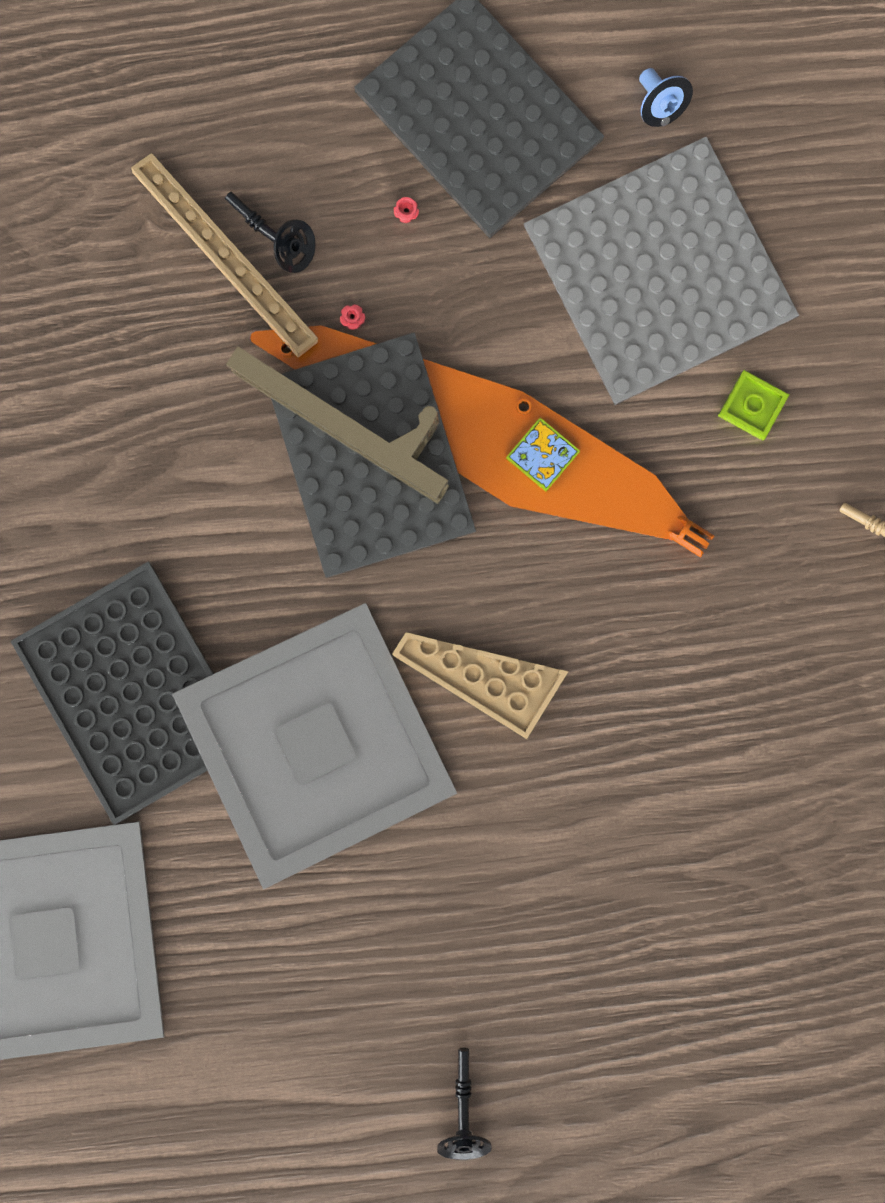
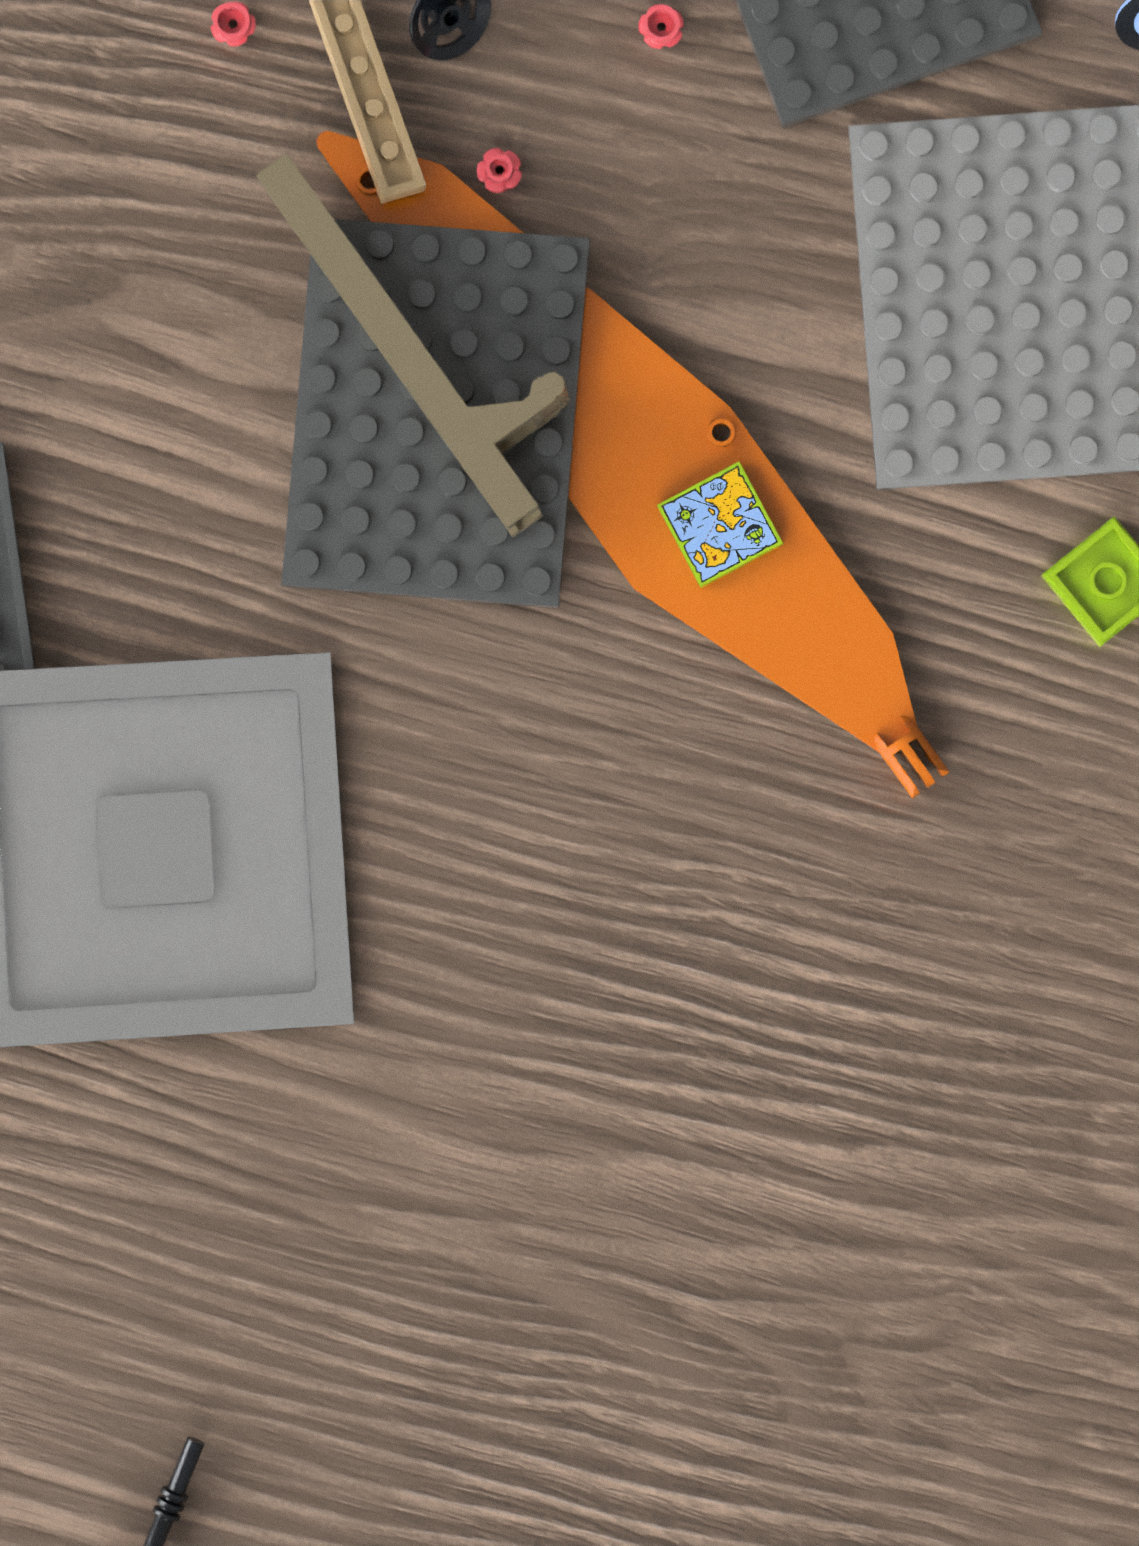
camera: 25 degrees right, 0 degrees up
(177, 290) = (232, 11): none -> coral plate
(495, 684) = (488, 871): tan wing -> none

